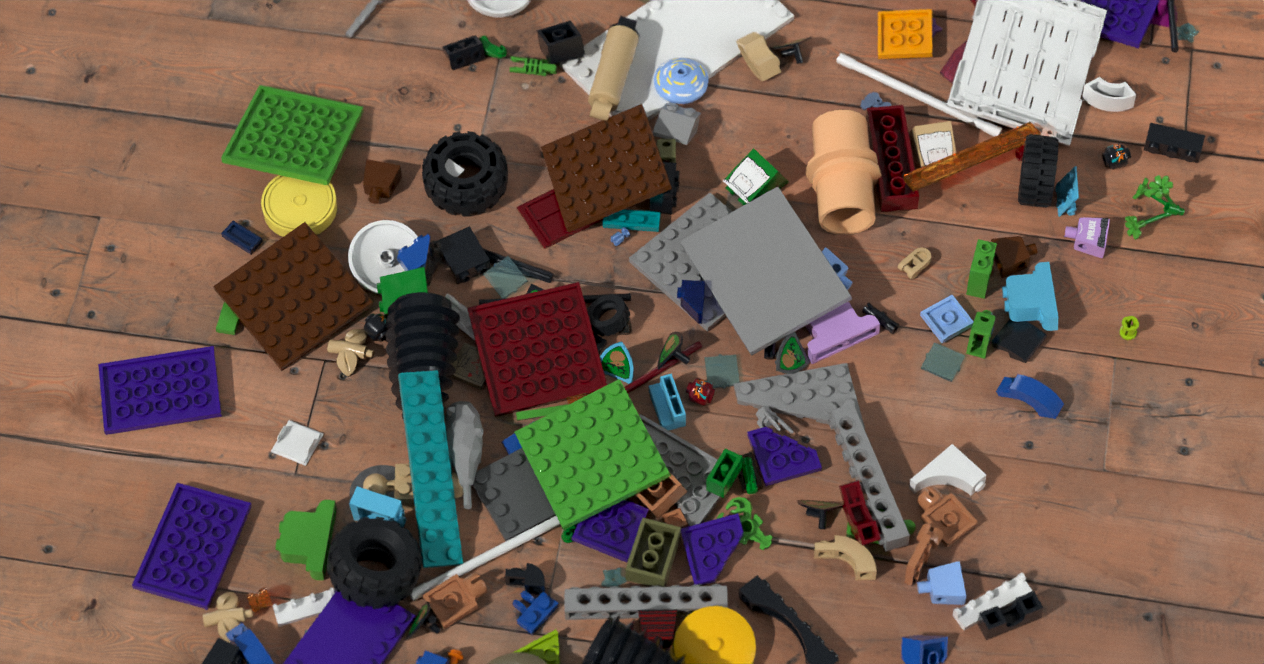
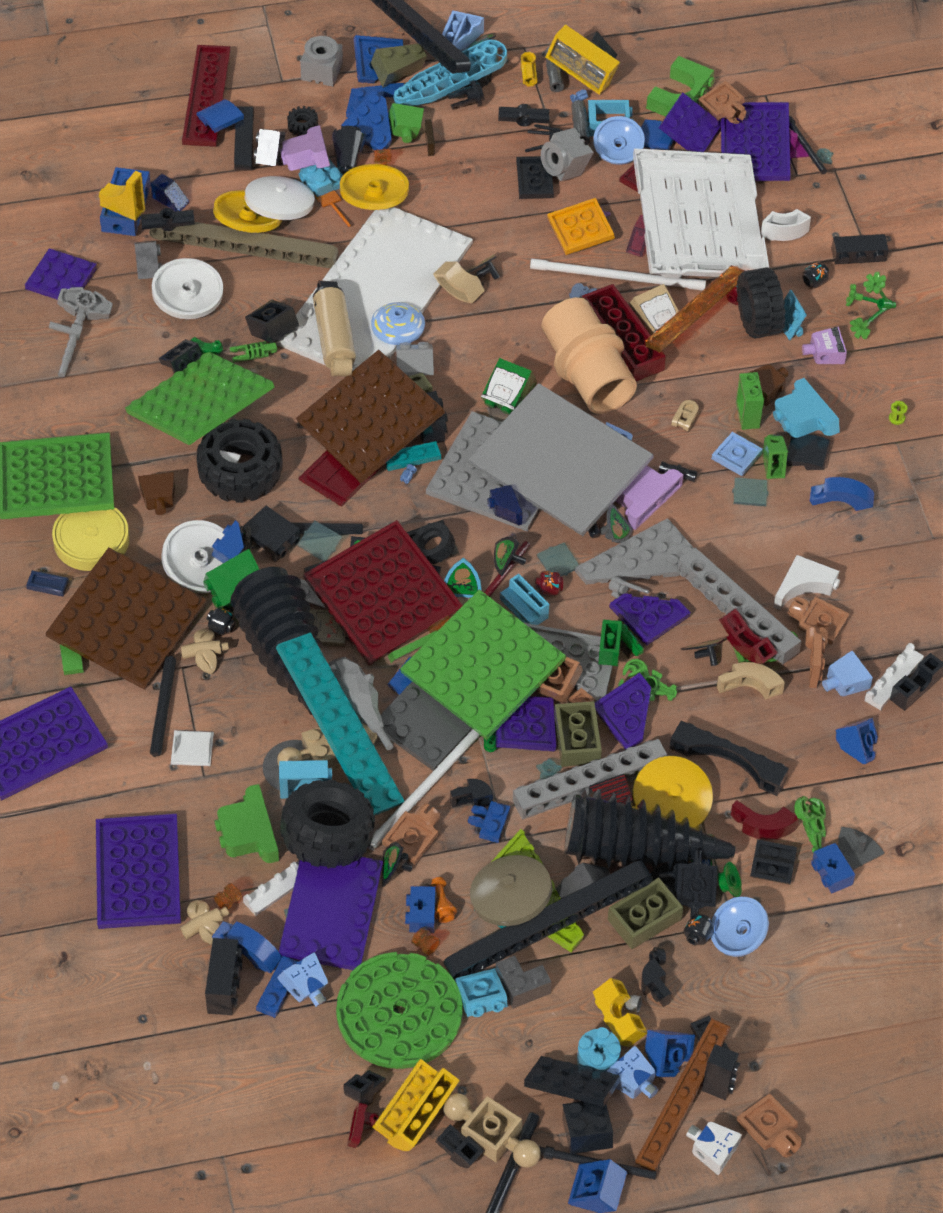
camera: 25 degrees left, 5 degrees down
(288, 393) = (162, 706): none -> black axle
(456, 99) = (199, 398): none -> bright green plate

